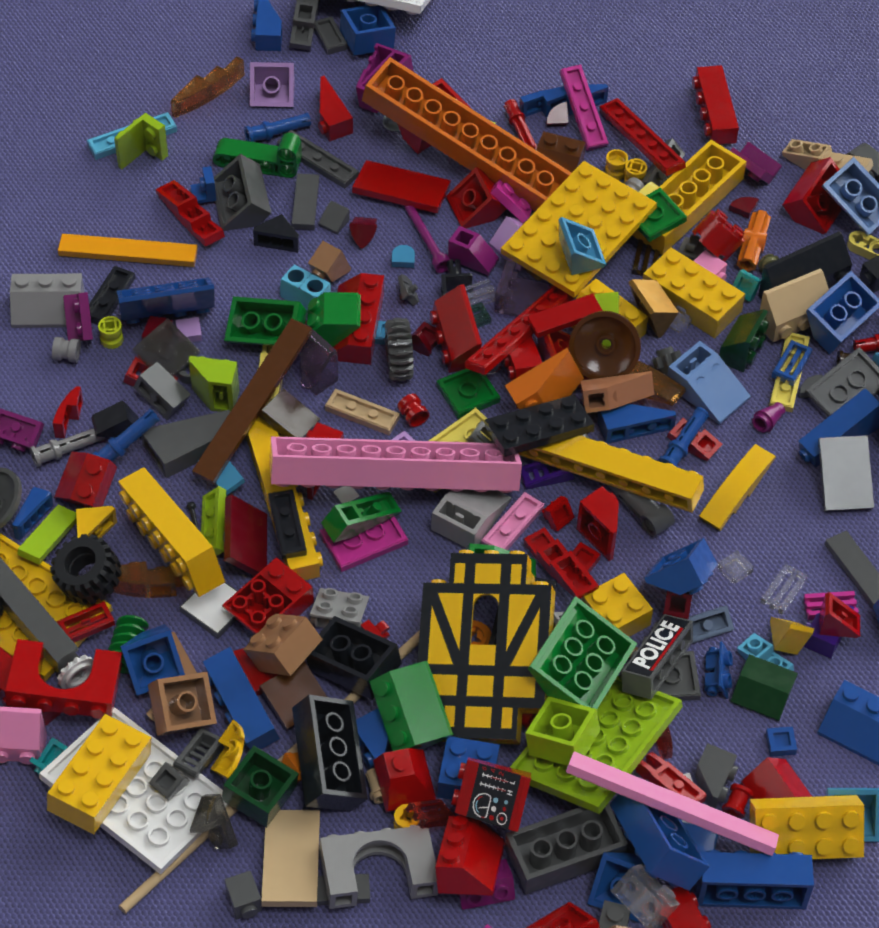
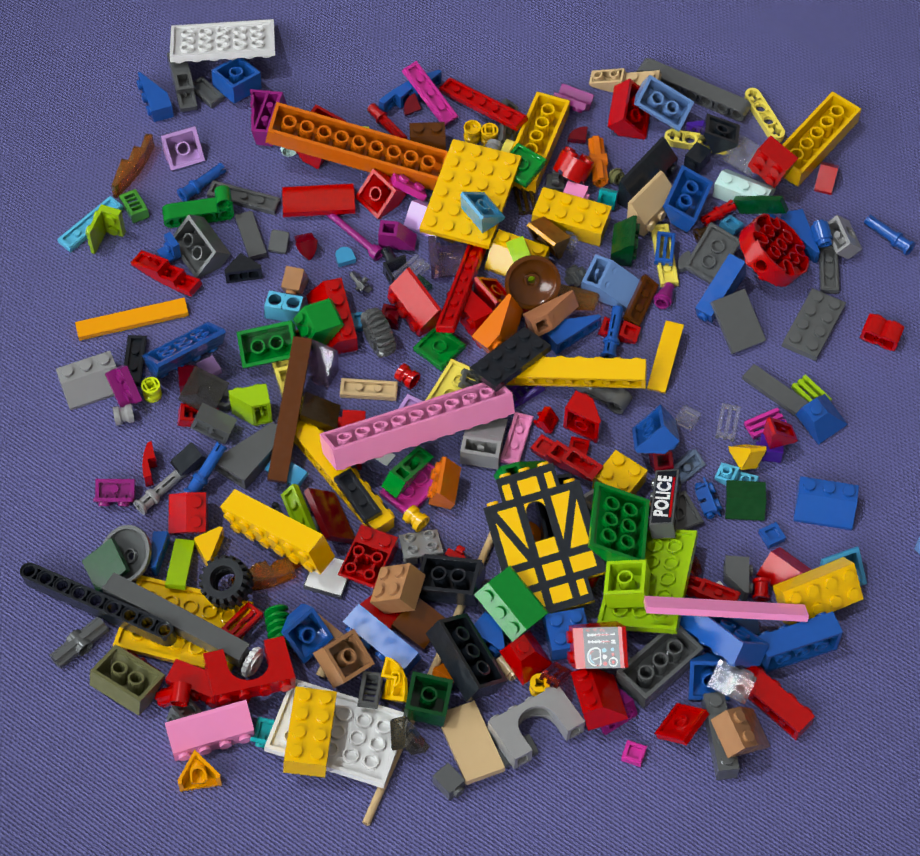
camera: 20 degrees left, 5 degrees up
(168, 781) = (359, 718): dark grey slope -> none
(189, 131) = (137, 215): none -> bright green slope
(334, 116) = (242, 160): red slope -> none
(347, 573) = (416, 518): none -> yellow wheel
(397, 543) = (444, 484): none -> orange slope
(563, 315) = (491, 267): red tile -> none
(715, 104) = (526, 60): red brick -> none
(735, 413) = (640, 300): none -> reddish brown tile

